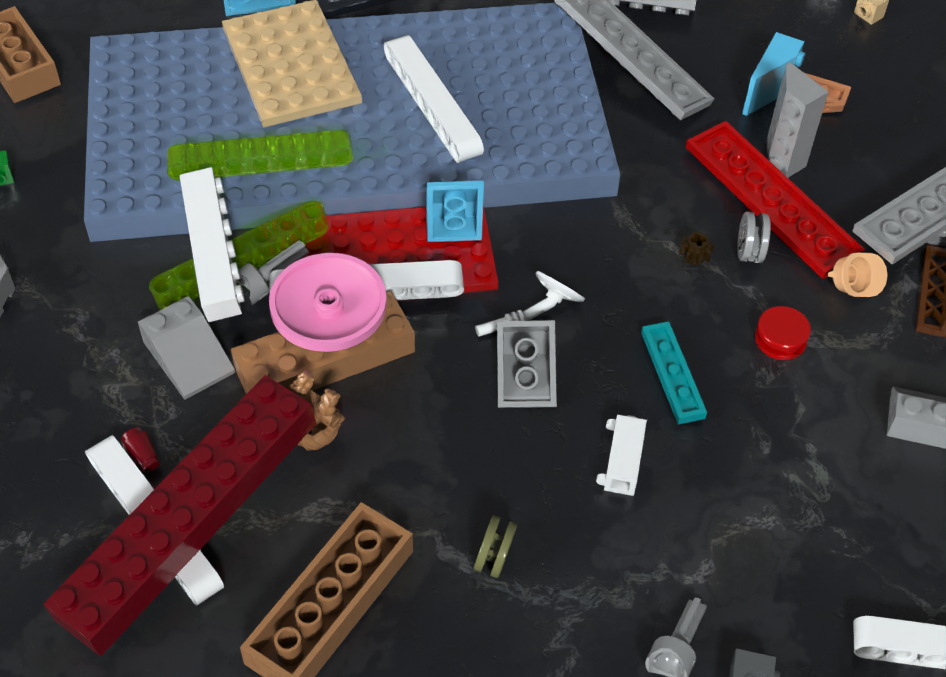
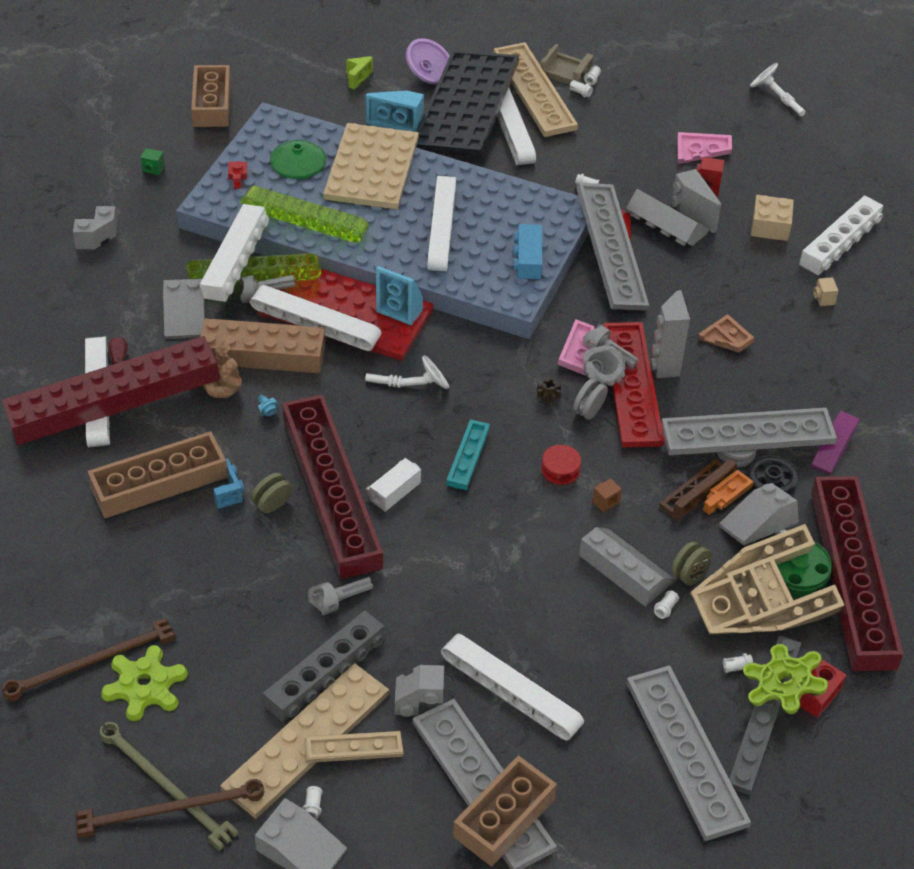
camera: 30 degrees right, 5 degrees down
(131, 136) = (237, 171): none -> red plate
(193, 90) = (298, 159): none -> green dish
(328, 302) = (274, 313): bright pink dish -> none
(392, 429) = (268, 406): none -> medium azure plate
(439, 569) = (230, 493): none -> dark azure bracket
(526, 364) = (378, 406): light grey slope -> none
(558, 89) = (528, 251): none -> dark azure brick
(561, 498) = (332, 487): none -> dark red brick
(683, 184) = (574, 349): none -> bright pink wing
(709, 161) = (600, 337): none -> light grey piece
(739, 189) = (604, 364): none -> light grey hair
(769, 73) = (707, 301): medium azure slope -> none
(860, 274) = (646, 454): light nougat piece -> none
(861, 345) = (606, 495): none -> dark orange plate

